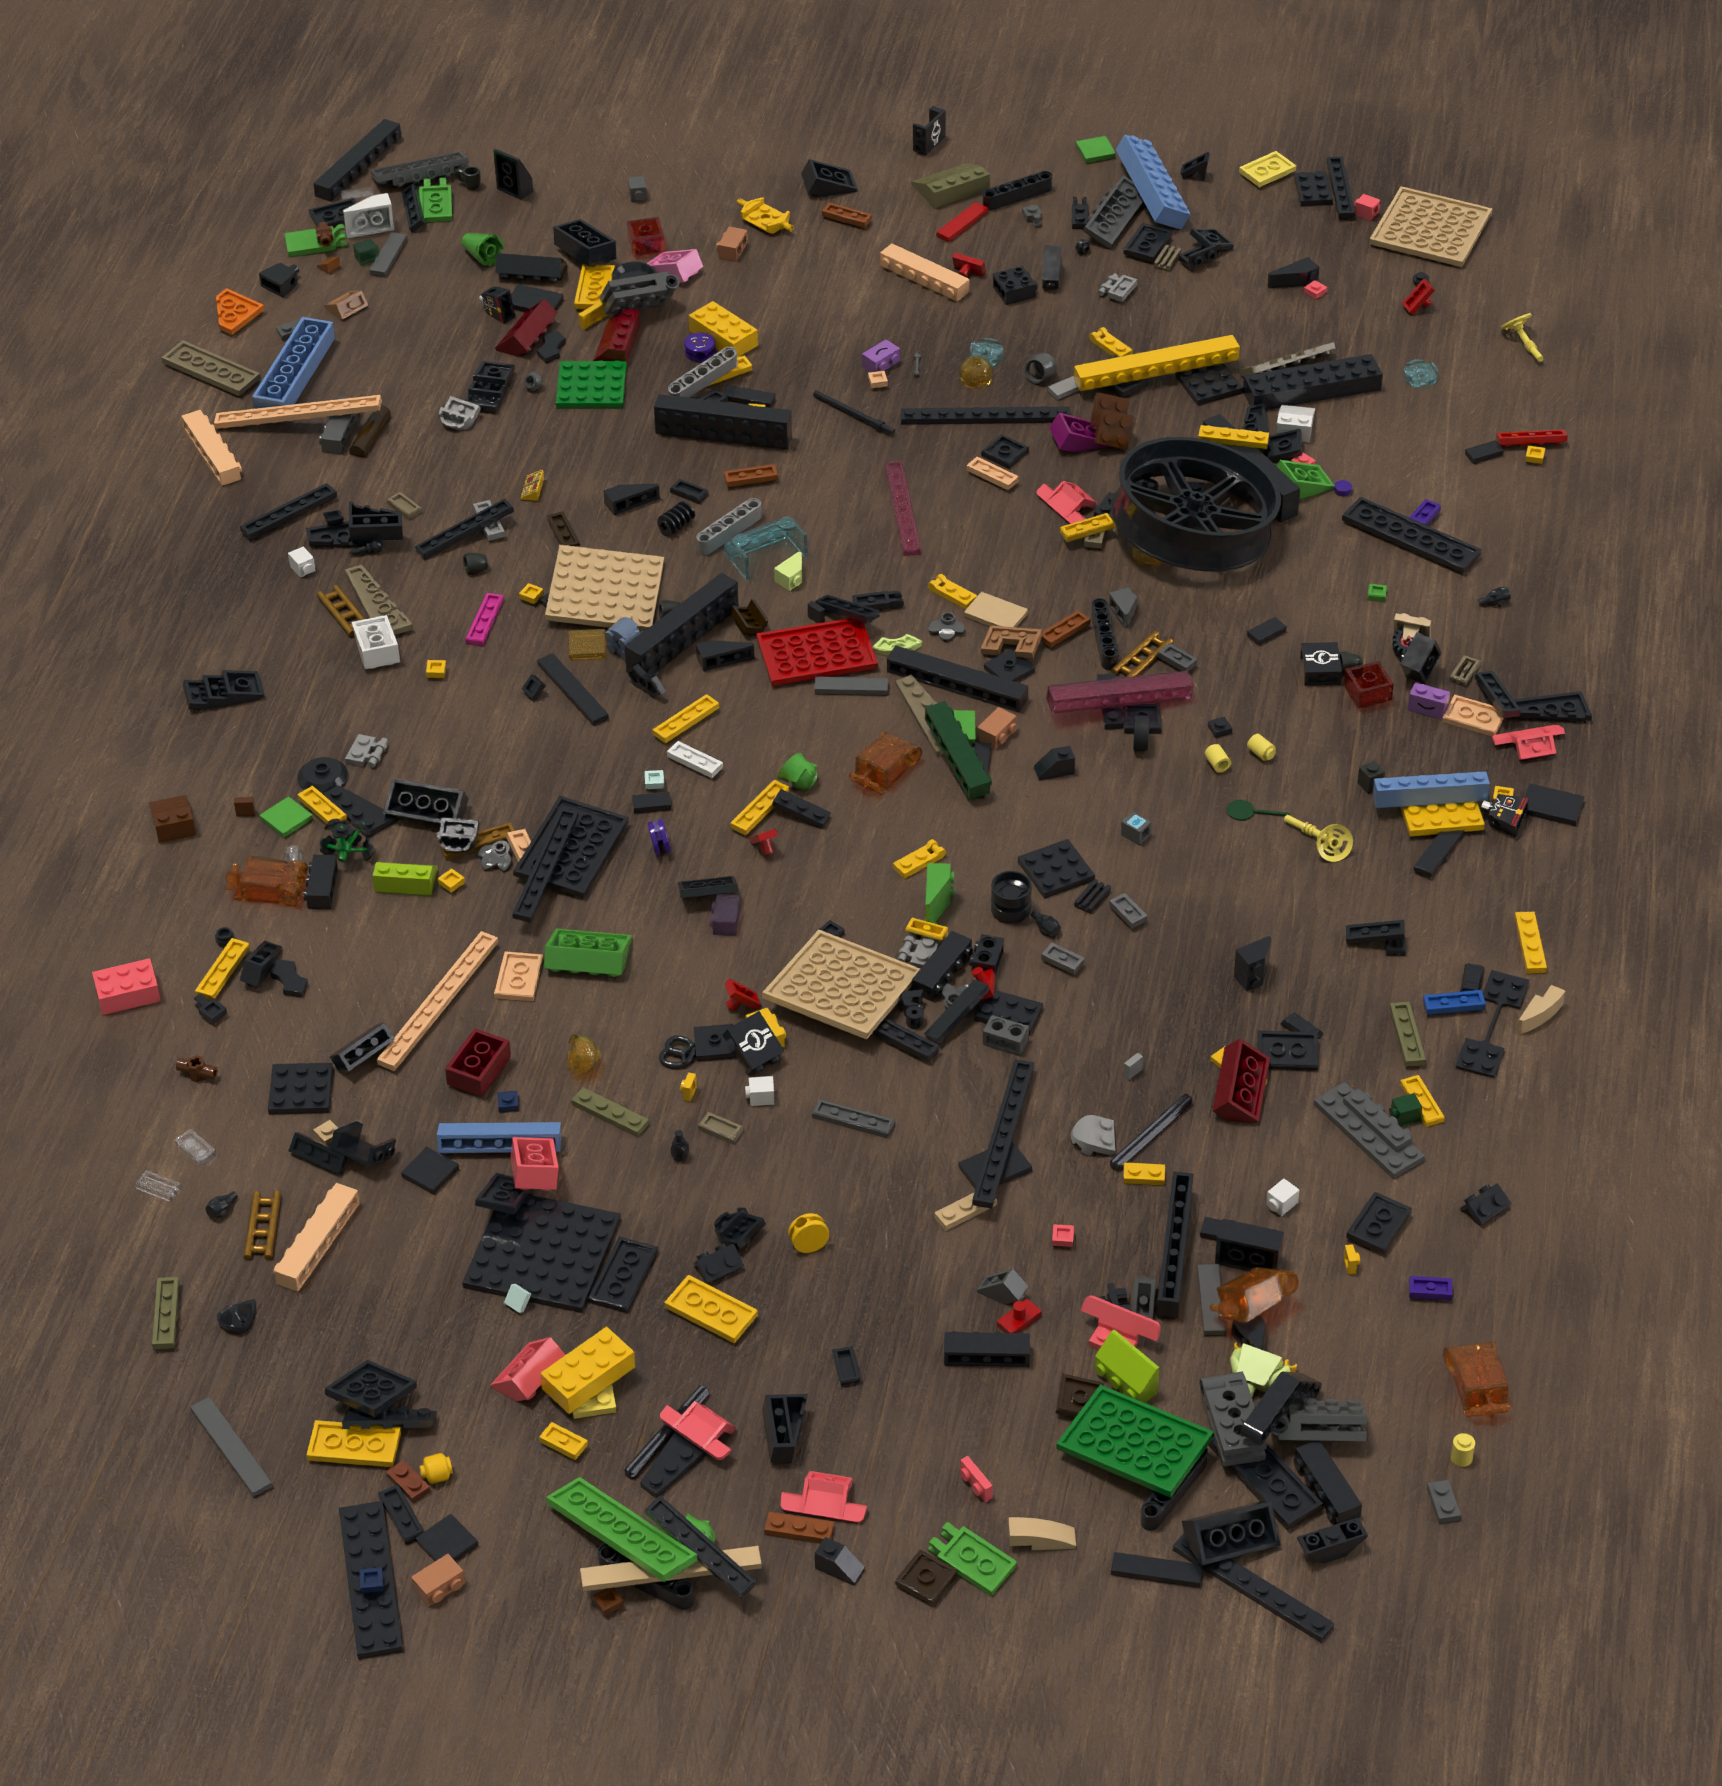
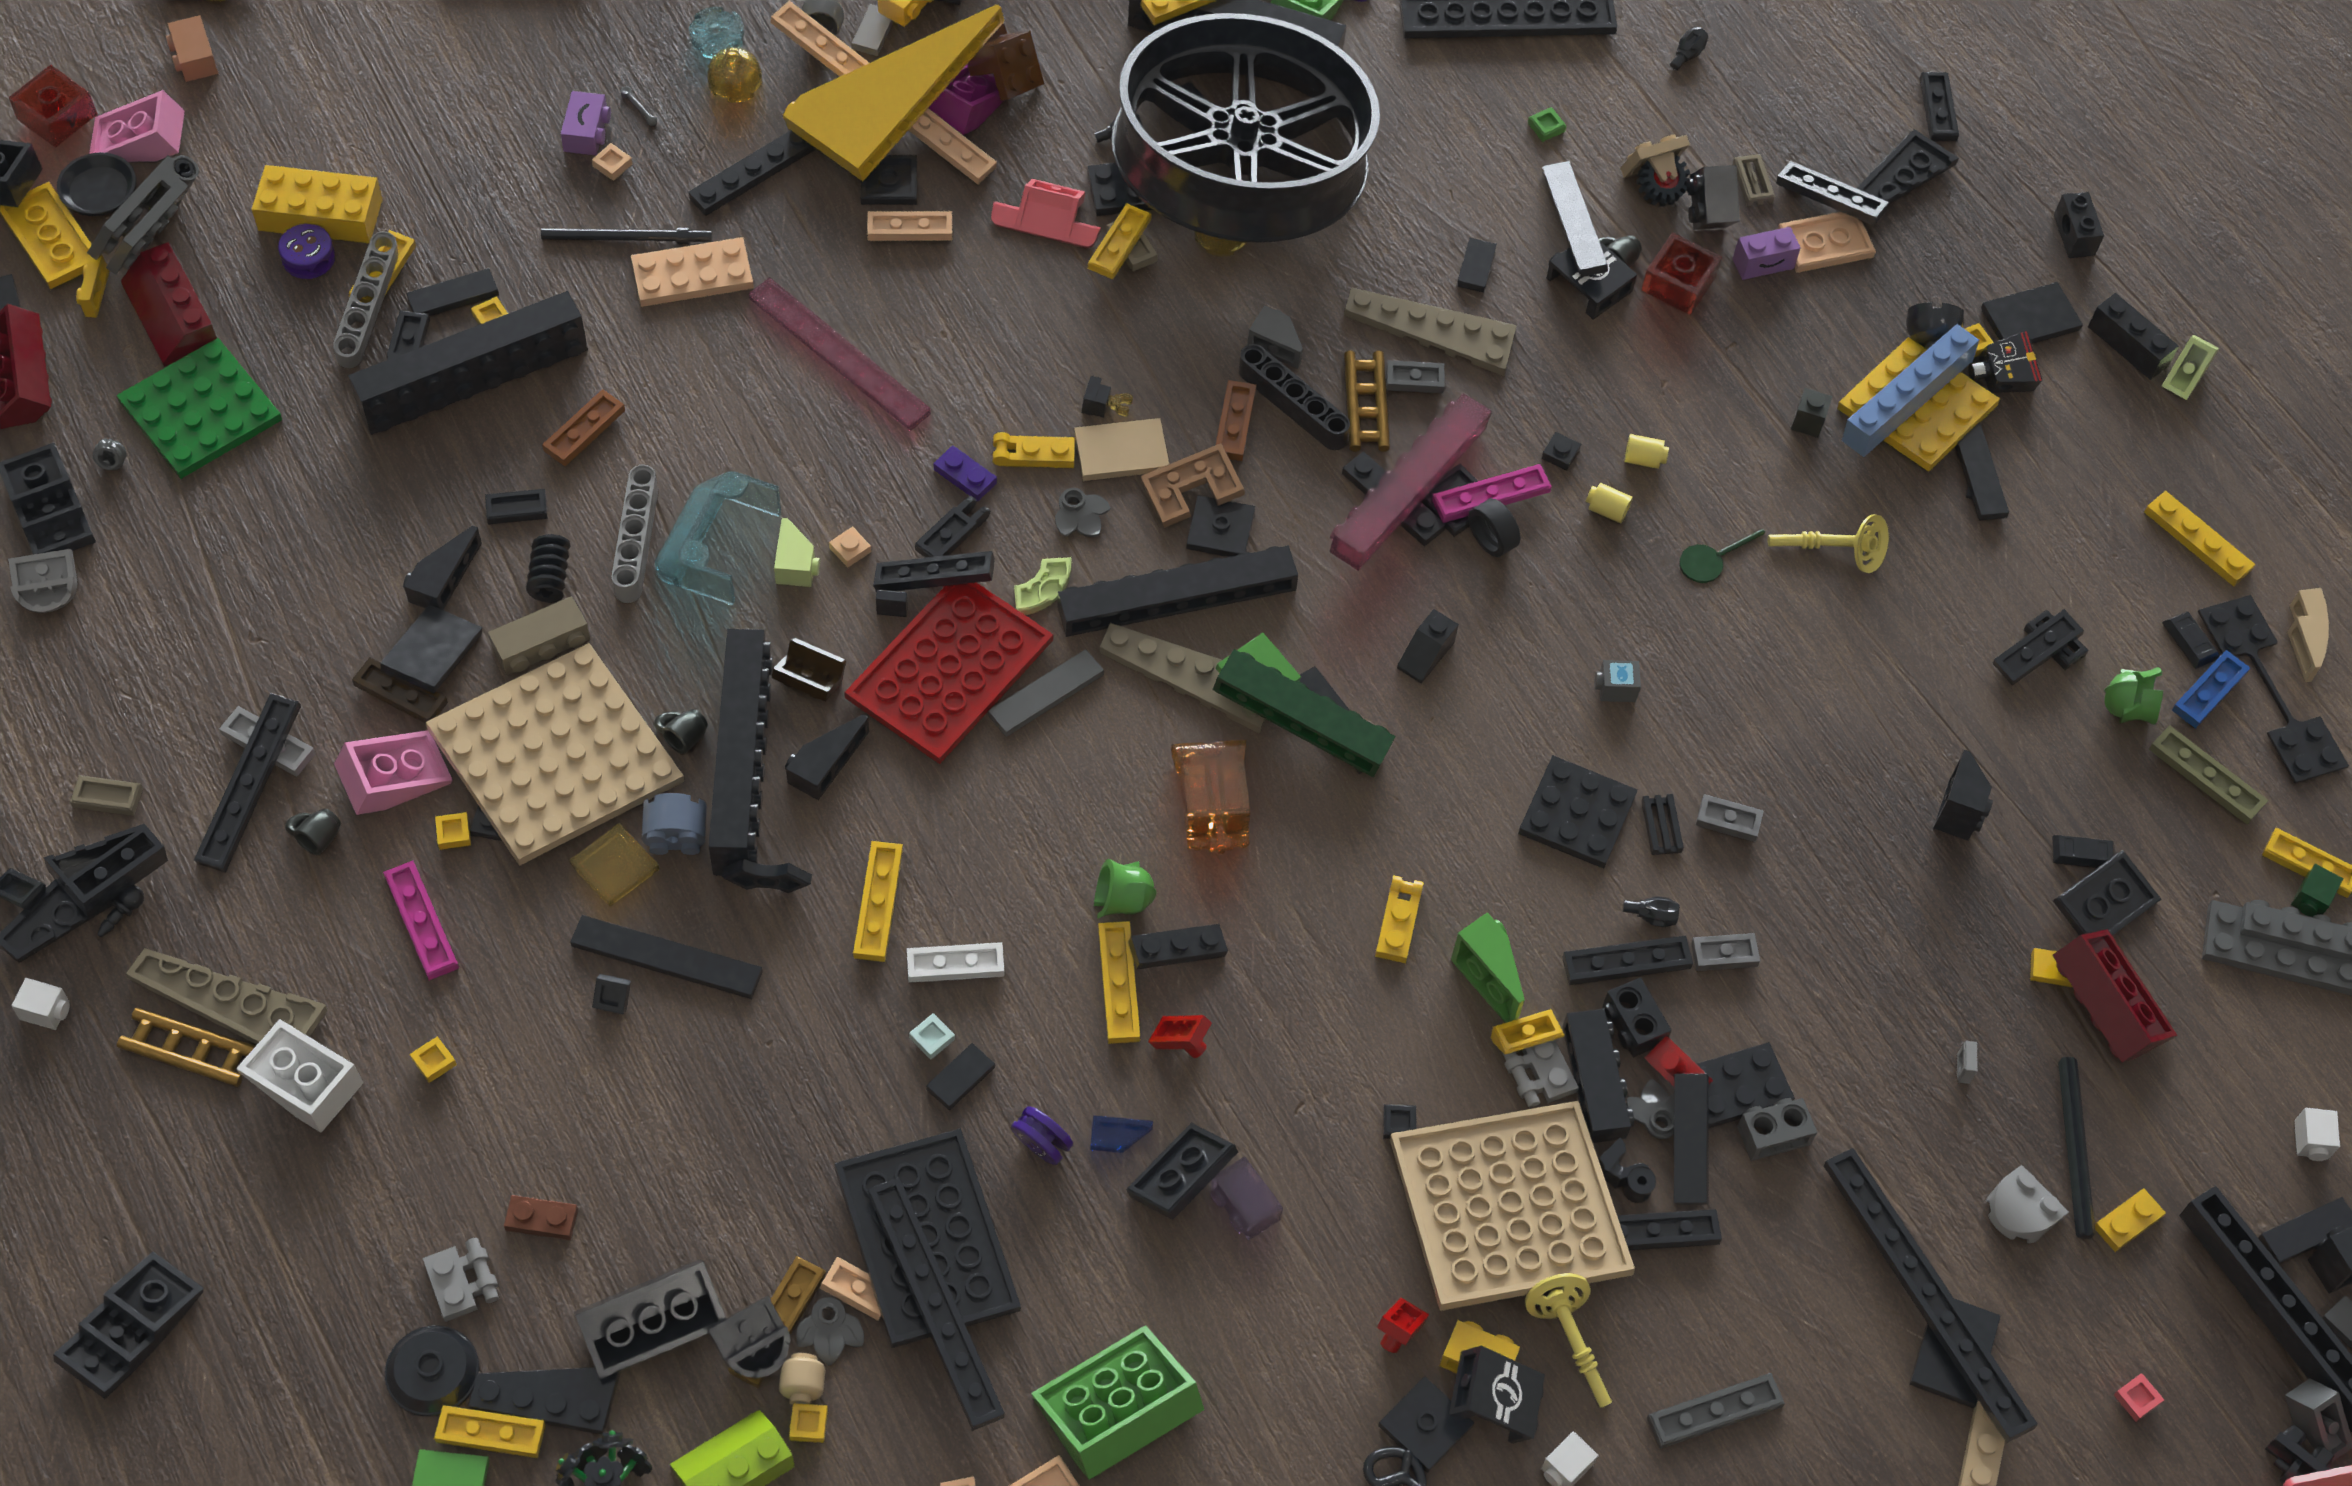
camera: 45 degrees left, 15 degrees up
(421, 749) = (541, 1217): none -> copper plate
(464, 862) = (802, 1378): none -> tan head
(528, 557) = (390, 770): none -> bright pink slope
(533, 486) = (276, 639): yellow slope -> none
(552, 343) = (72, 366): black tile -> none
(593, 522) = (431, 648): none -> black tile
(645, 541) = (539, 636): none -> dark tan brick
(697, 862) = (1116, 1133): none -> clear blue tile
(819, 1029) = (1562, 1308): none -> light yellow dish
(823, 584) = (850, 547): none -> light nougat plate
(868, 441) = (692, 271): none -> light nougat plate
(909, 583) = (965, 473): none -> dark purple plate
(997, 727) = (1303, 636): nougat brick -> none
(1005, 586) = (1098, 398): none -> black piece
(1011, 896) = (1586, 902): black wheel -> none
(1012, 934) = (1627, 960): none -> black plate
(1022, 409) = (874, 106): none -> yellow slope
(1036, 411) = (843, 59): none -> light nougat plate
(1162, 722) = (1505, 488): none -> dark pink tile
(1228, 659) = (1458, 333): none -> dark tan wing
(1335, 632) = (1575, 219): none -> tile
(1404, 978) = (2133, 697): none -> bright green helmet
(1493, 771) = (1929, 324): none -> black cylinder
(1531, 742) = (1927, 232): coral plate -> none
(1597, 838) = (2133, 336): none -> black brick
(1613, 692) = (1939, 106): none -> black tile
(1616, 868) = (2190, 367): none -> yellowish green slope
(1626, 777) = (2078, 225): none -> black brick

